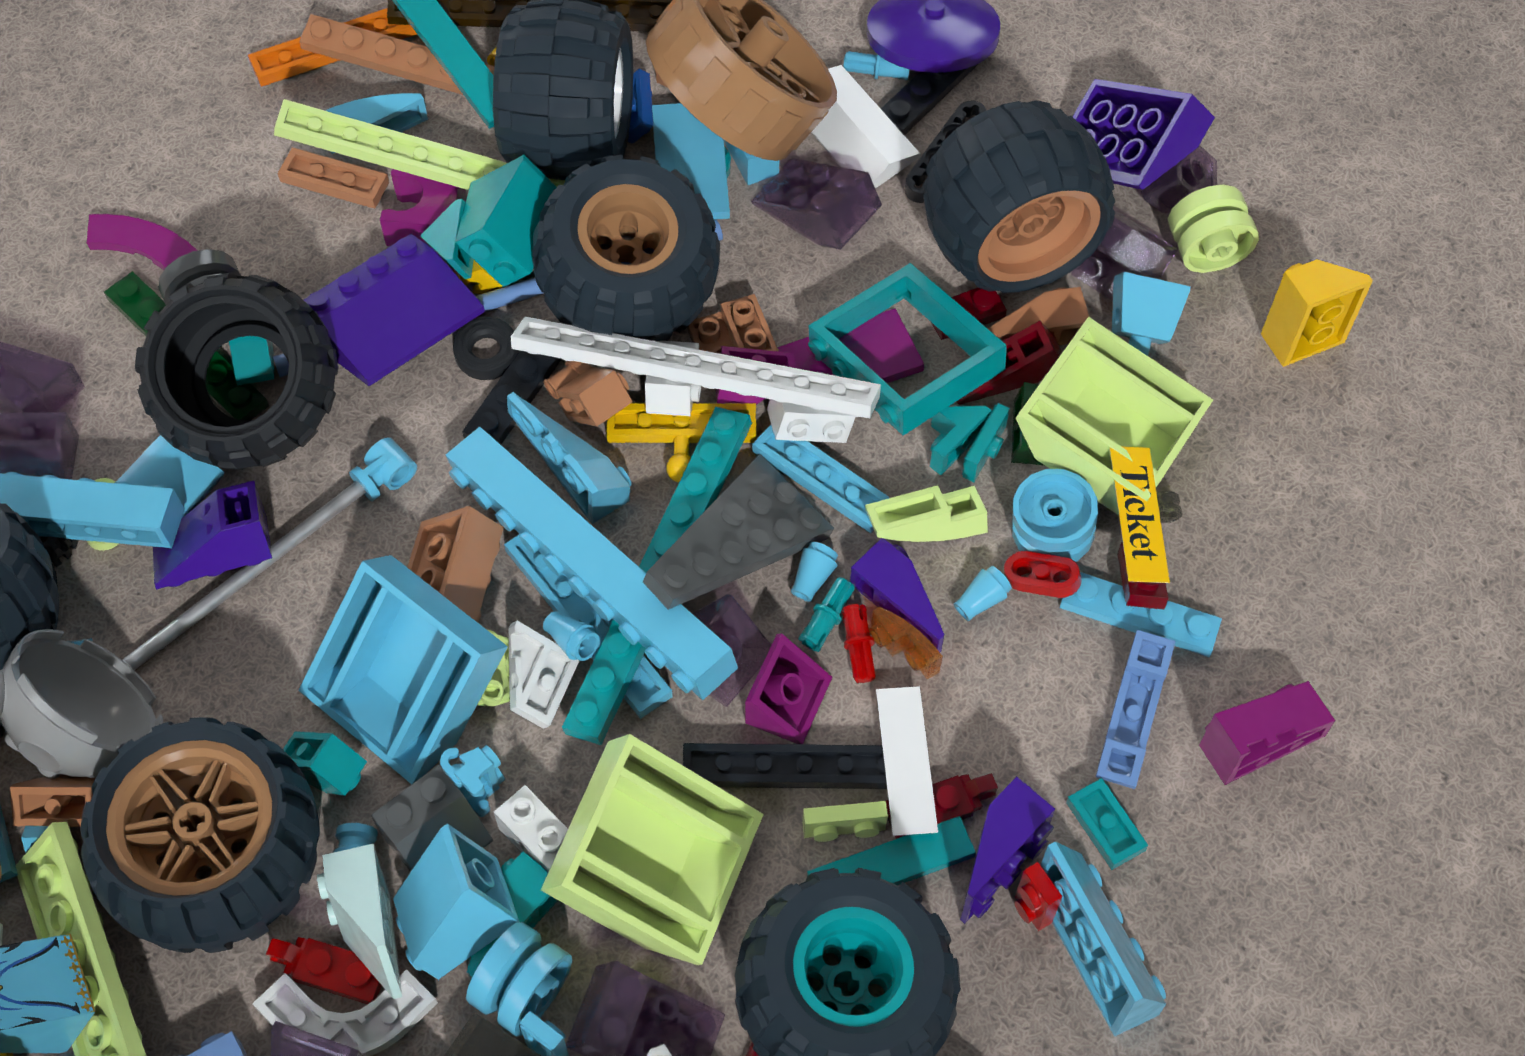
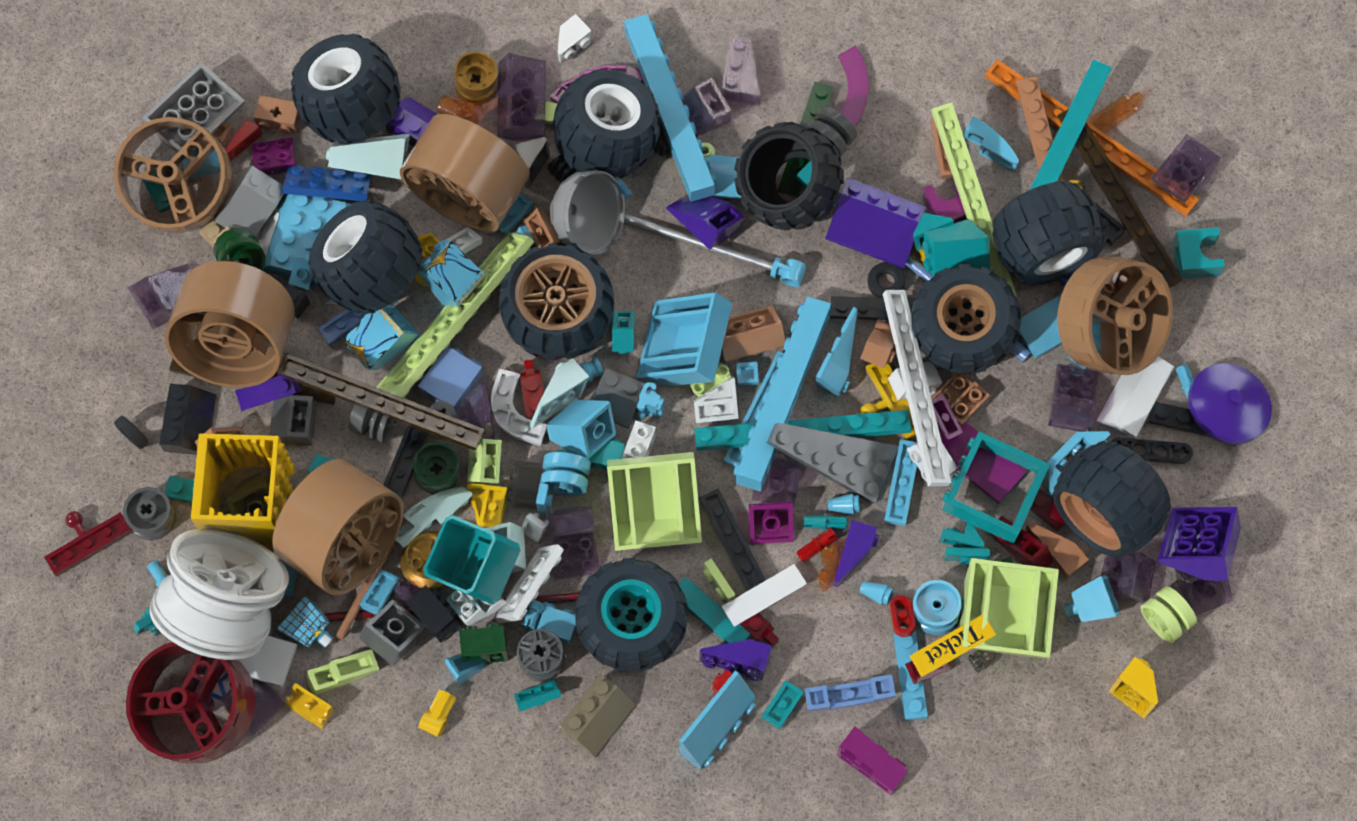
camera: 65 degrees right, 10 degrees up
(512, 605) = (747, 373): none -> medium azure plate
(574, 637) = (743, 408): medium azure cone -> none
(898, 210) = (1072, 446): none -> medium azure slope
(929, 515) = (904, 544): yellowish green slope -> none

